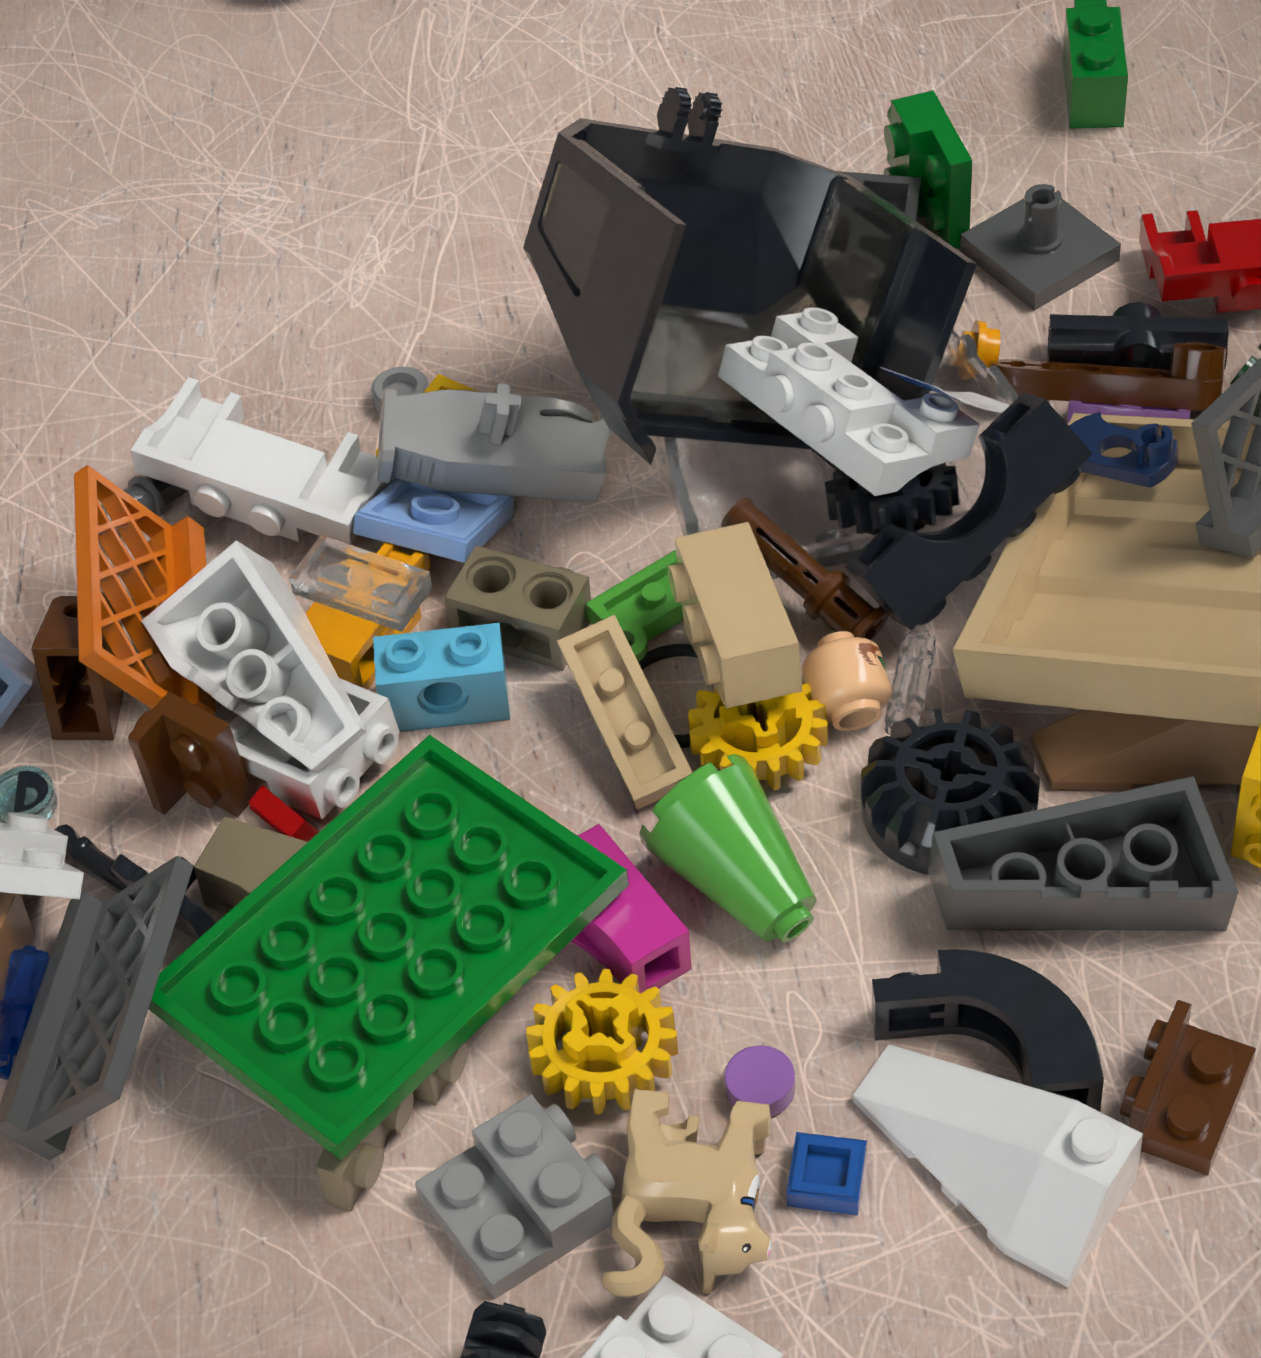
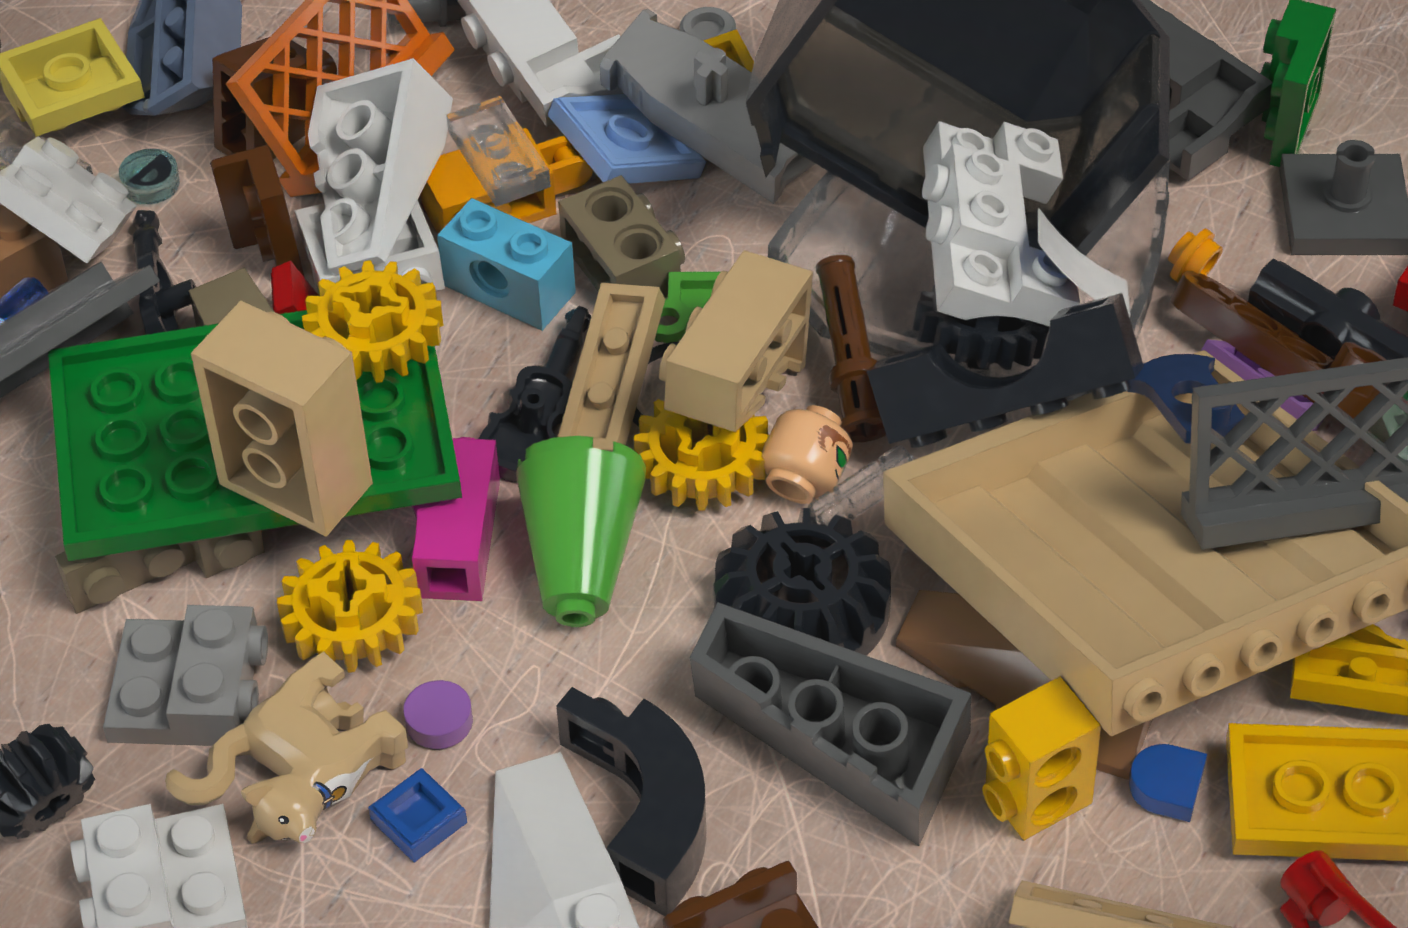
camera: 35 degrees right, 0 degrees up
(429, 781) = (377, 317): none -> yellow gear
(478, 897) = (283, 416): none -> tan brick
(580, 775) = (537, 399): none -> black piece

